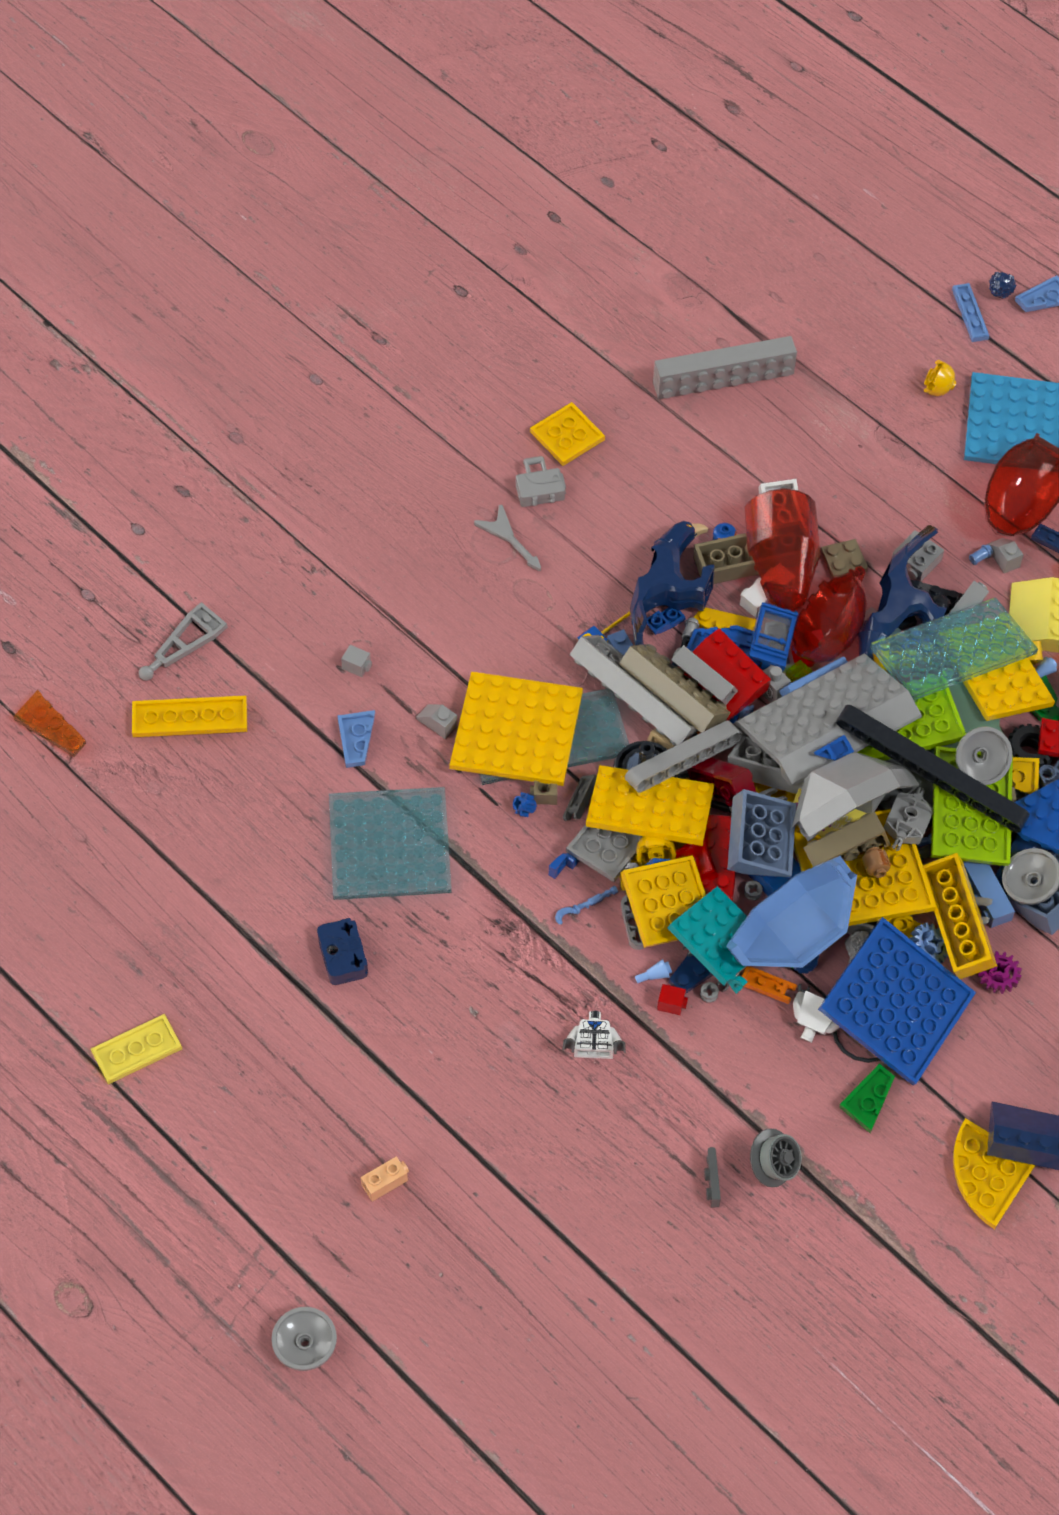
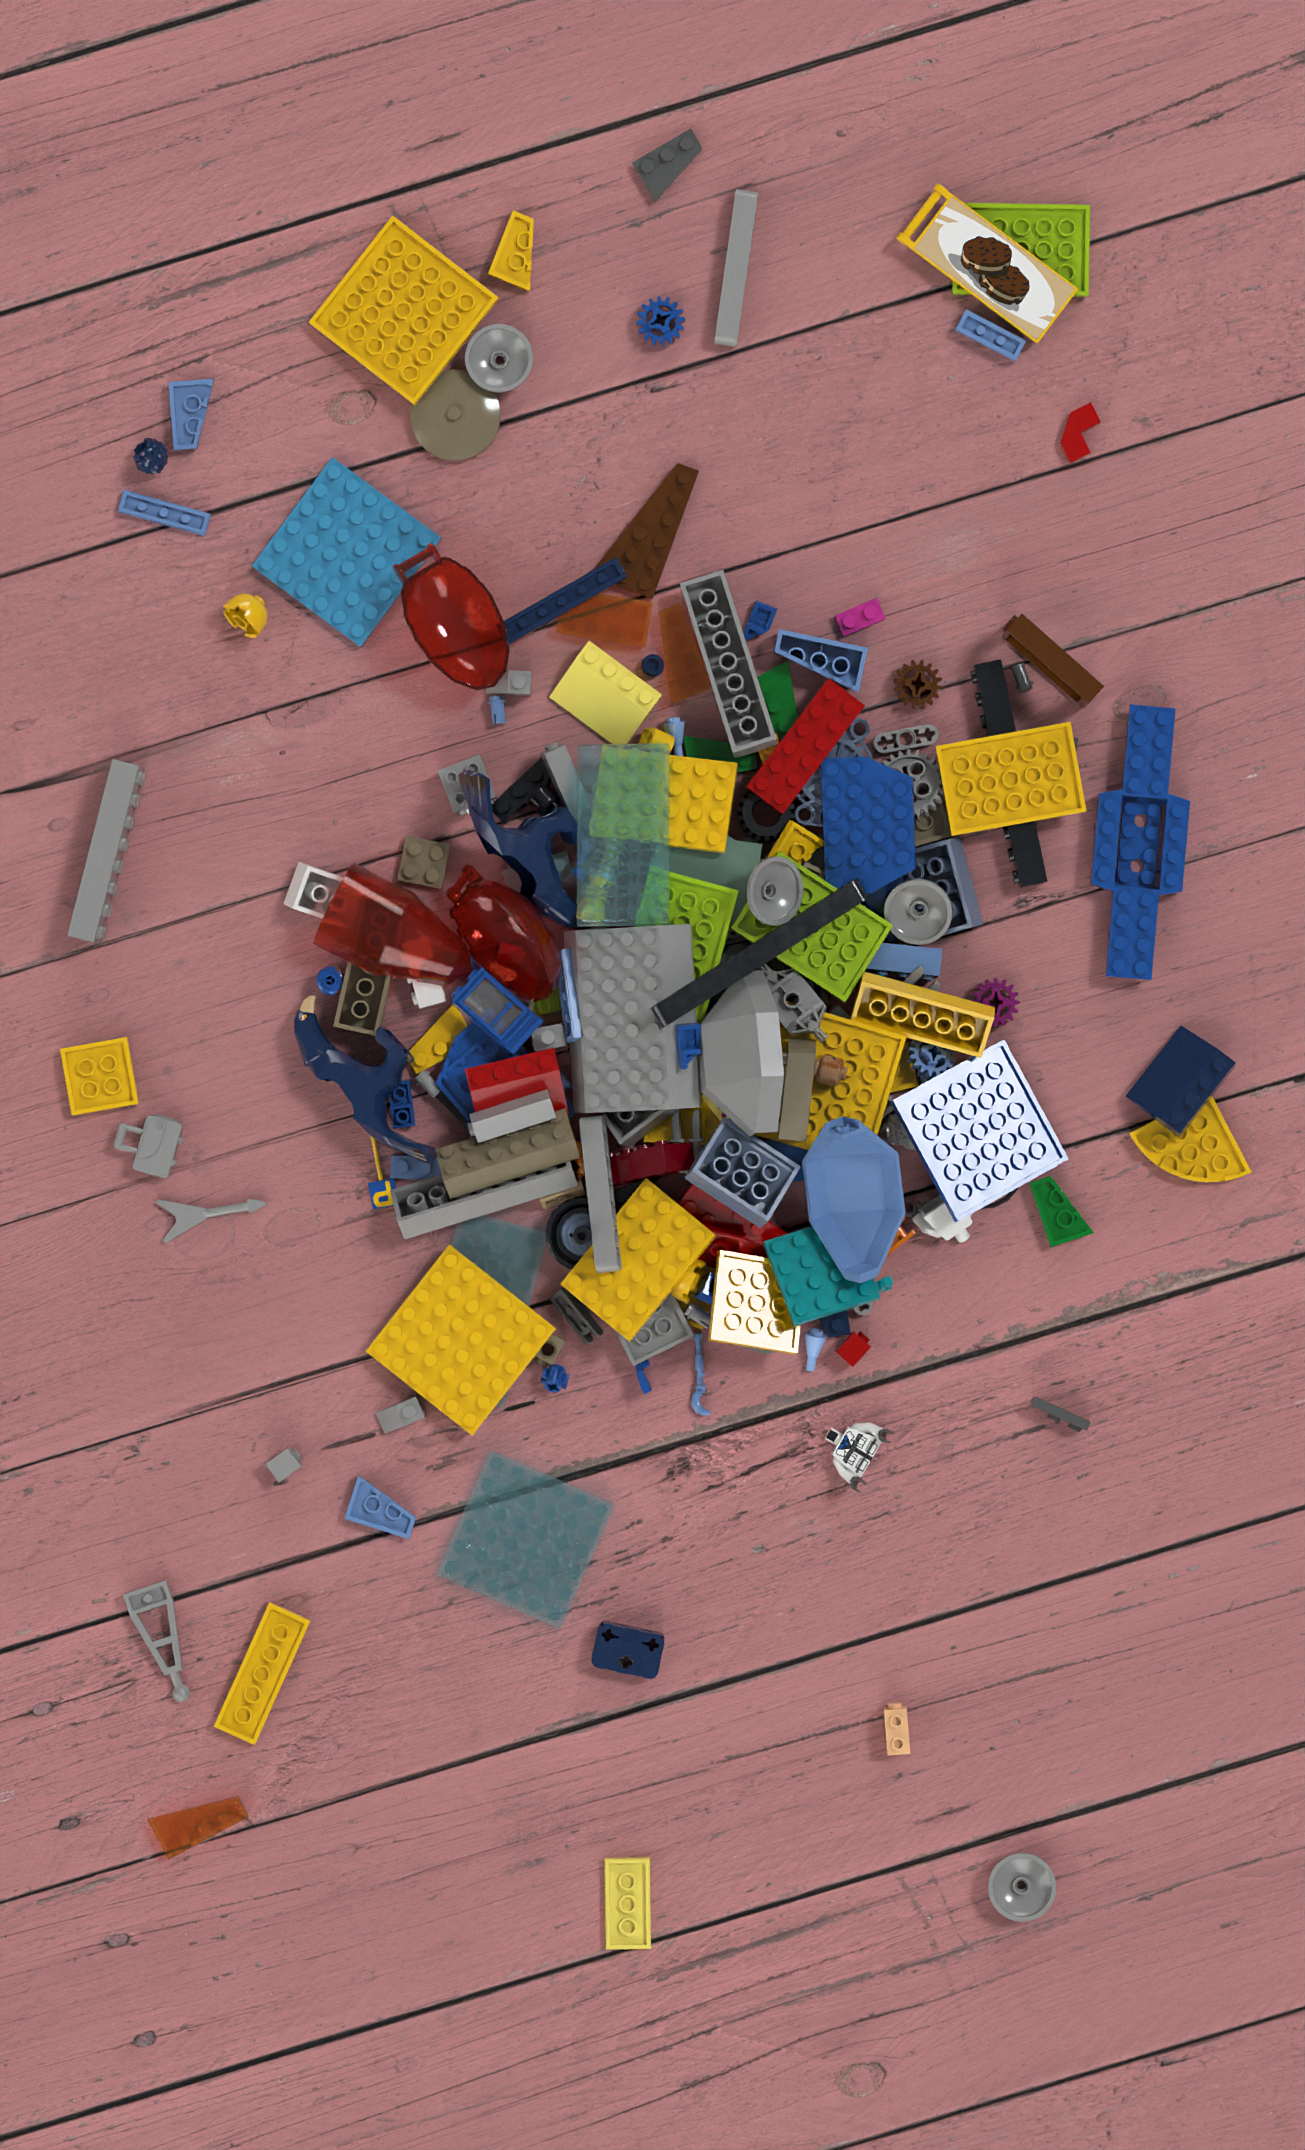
camera: 60 degrees left, 30 degrees up
(775, 1157) = (1077, 1347): dark grey piece -> none

